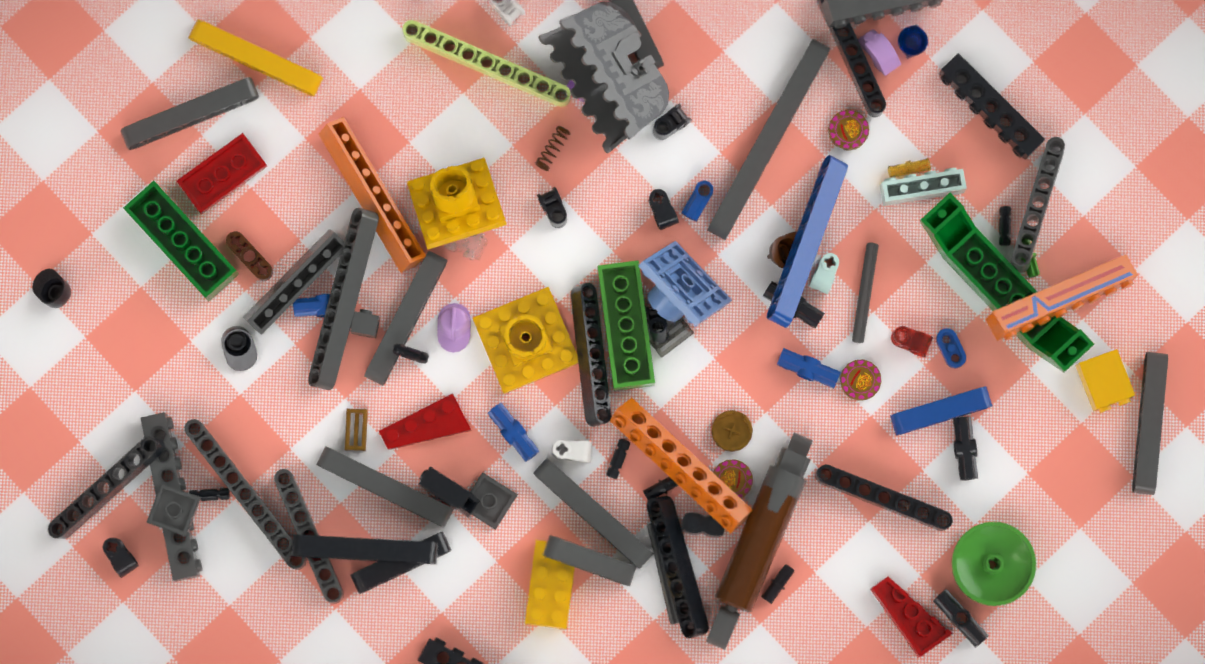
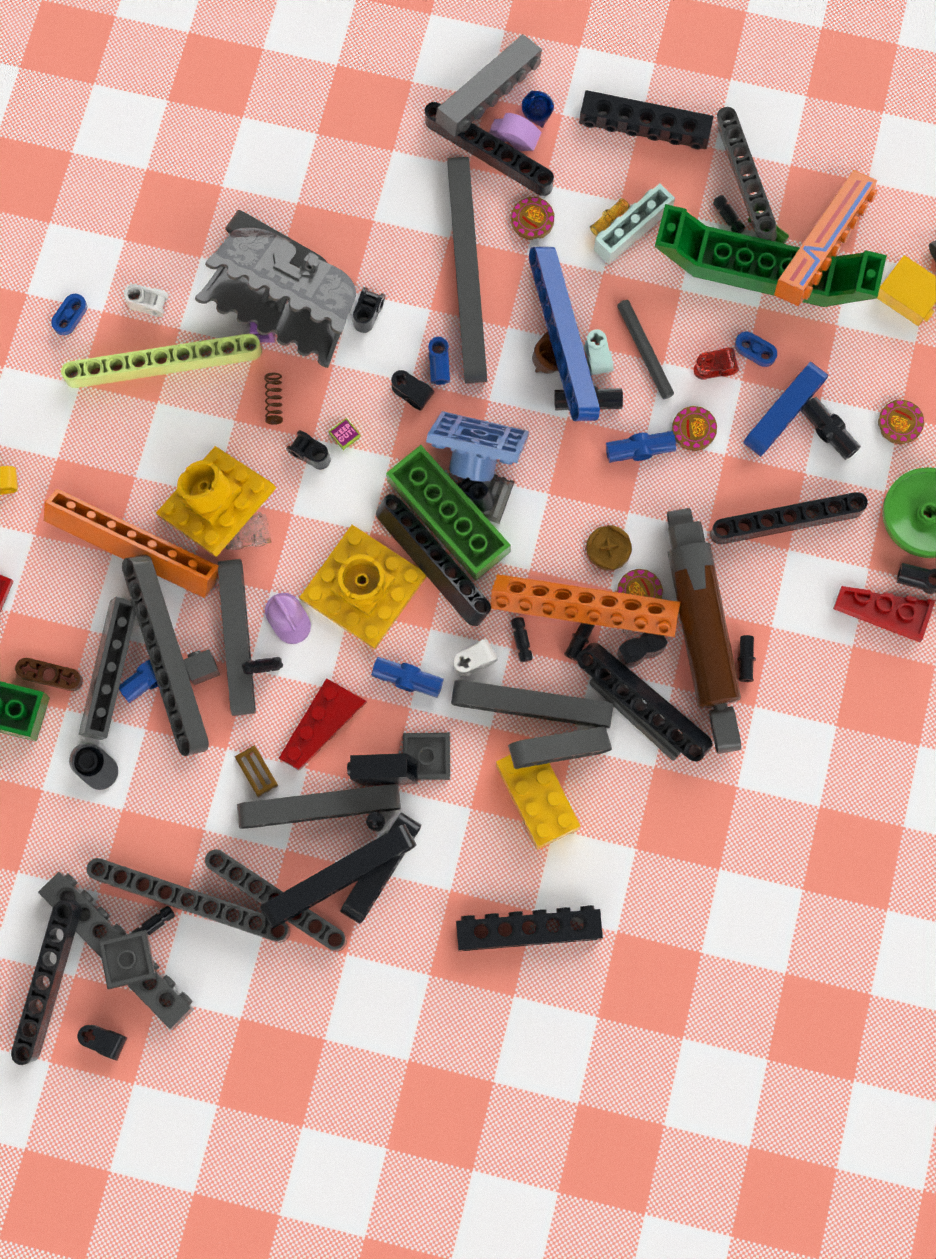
camera: 30 degrees left, 5 degrees down
(418, 525) = (375, 821): none -> black axle
(589, 211) = (344, 434): none -> tile
(1024, 478) = (901, 421): none -> pearl gold tile

